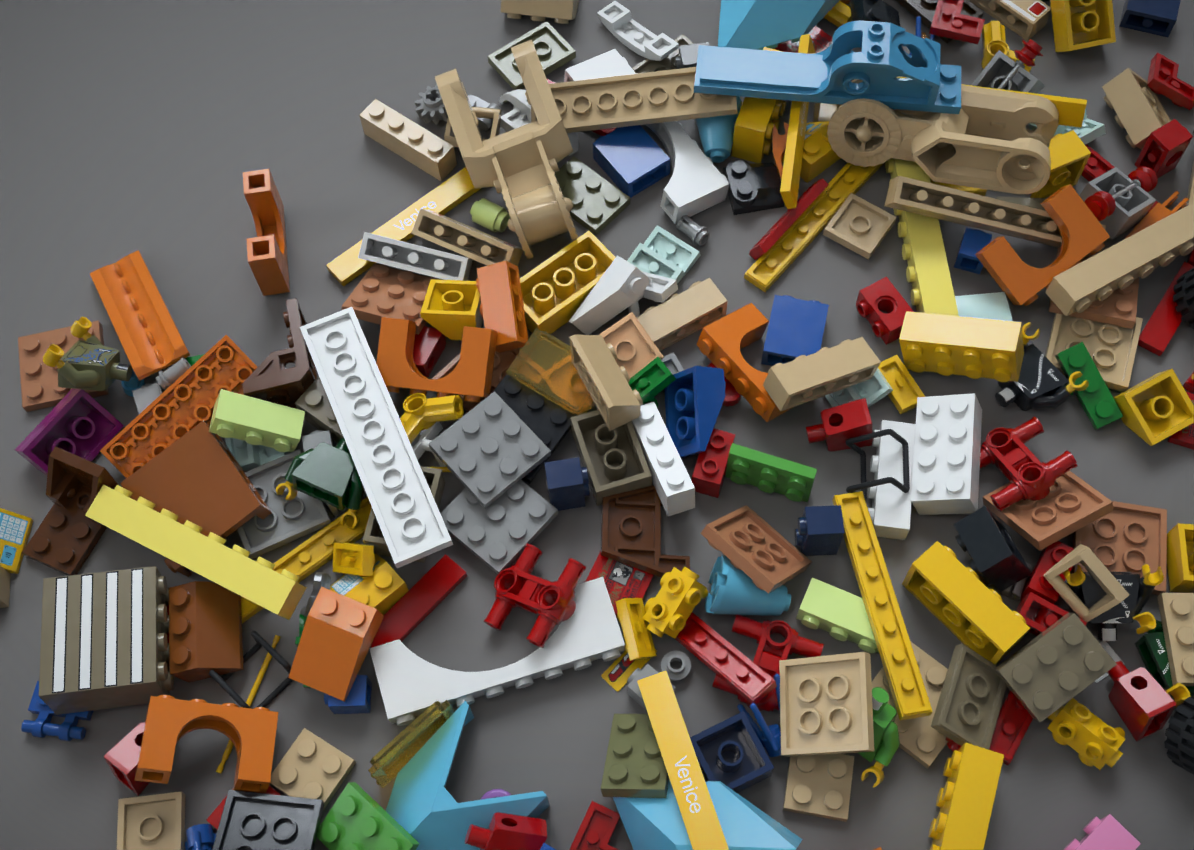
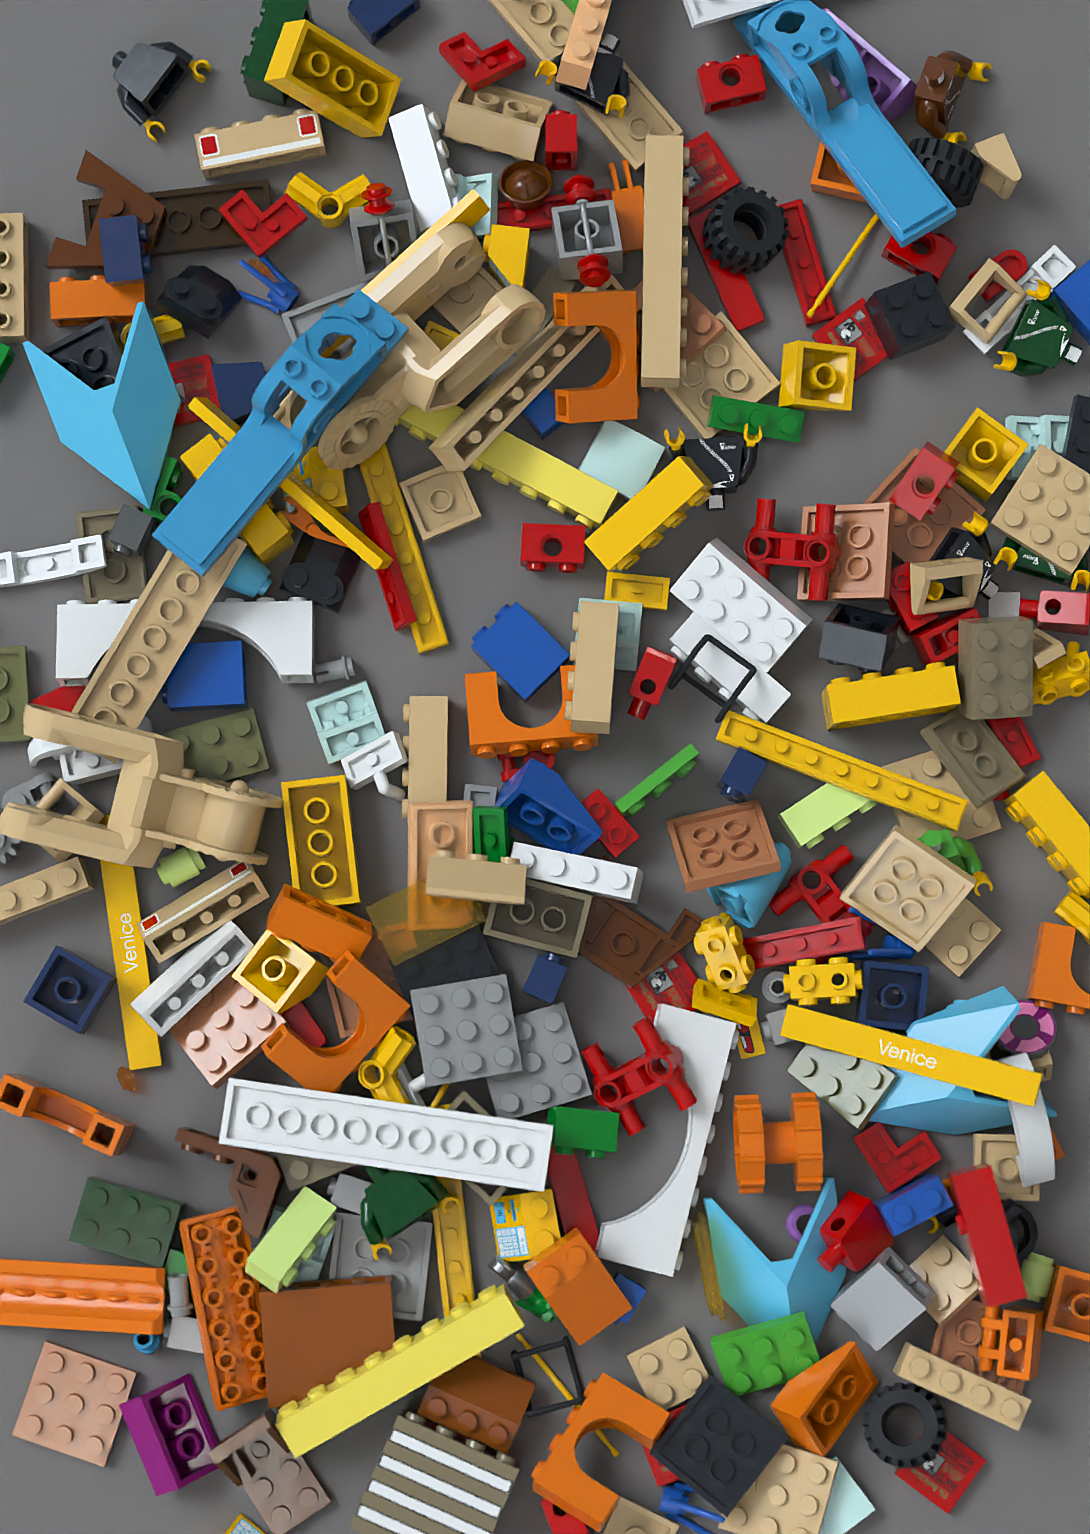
camera: 60 degrees left, 20 degrees up
(88, 362) = (114, 1374): olive torso -> none
(212, 311) = (127, 1221): none -> dark green brick
(318, 267) = (126, 1078): none -> clear orange piece
(353, 558) = (494, 1223): yellow plate -> none
(358, 196) = (70, 990): none -> dark blue brick
(465, 581) = (583, 1131): none -> green brick
(537, 716) = (777, 1142): none -> orange piece
(611, 295) = (368, 799): white slope -> none
(695, 681) = (814, 982): none -> yellow brick
(1081, 76) = (424, 164): none -> white brick
(1097, 700) = (1045, 648): none -> tan plate
(1114, 152) = (525, 184): none -> reddish brown hat
(1133, 515) = (932, 463): none -> brick

